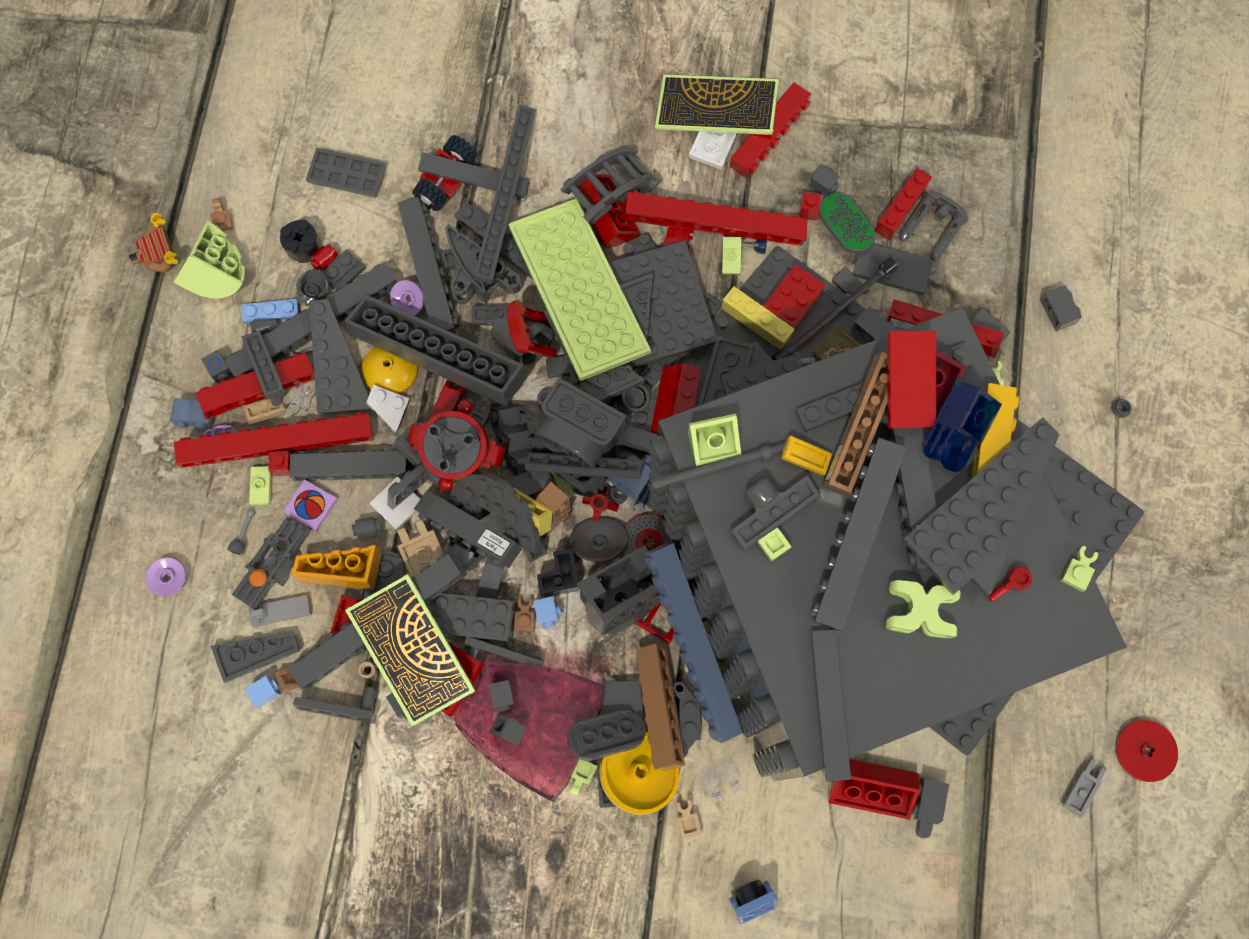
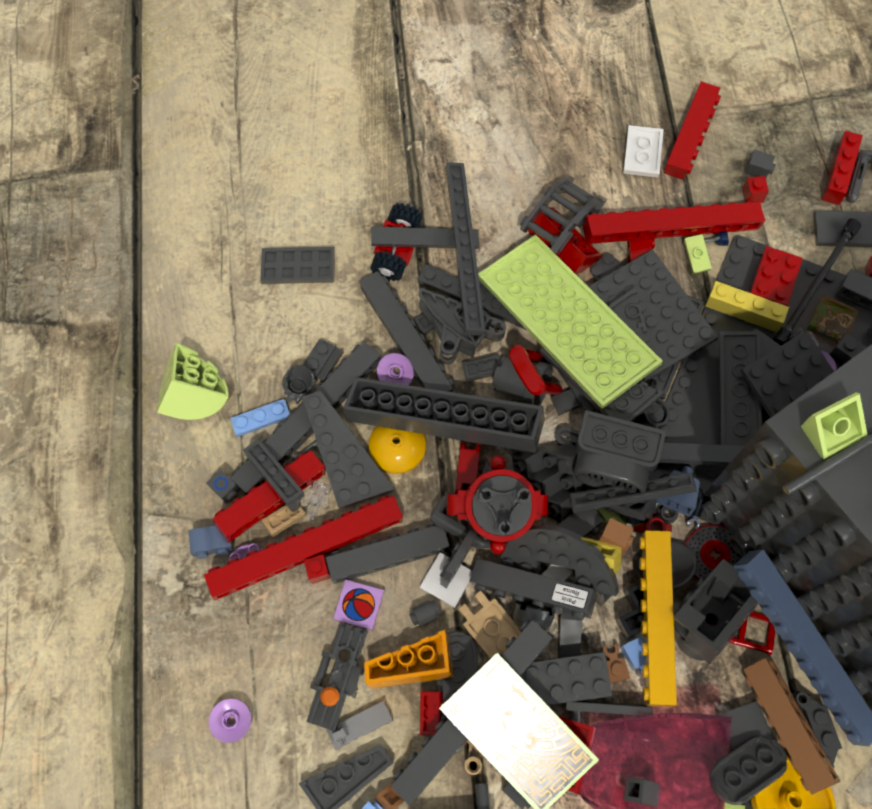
camera: 10 degrees left, 5 degrees down
(155, 247) = (127, 383): torso -> none
(221, 217) = (184, 337): medium nougat plate -> none
(237, 546) = (295, 667): hinge -> none
(260, 486) = (301, 598): yellowish green plate -> none
(263, 325) = (261, 433): dark grey cone -> none
(299, 240) = (272, 341): black brick -> none
(323, 257) = (299, 351): red brick -> none
(387, 405) = (408, 482): white wing -> none
(501, 695) = (622, 755): dark grey brick -> none
(565, 590) = (658, 619): none -> yellow brick
(675, 392) = (696, 407): red slope -> none
(717, 104) = (635, 118): black piece -> none
(847, 223) = (796, 198): tile -> none
(847, 282) = (815, 253): dark grey tile -> none

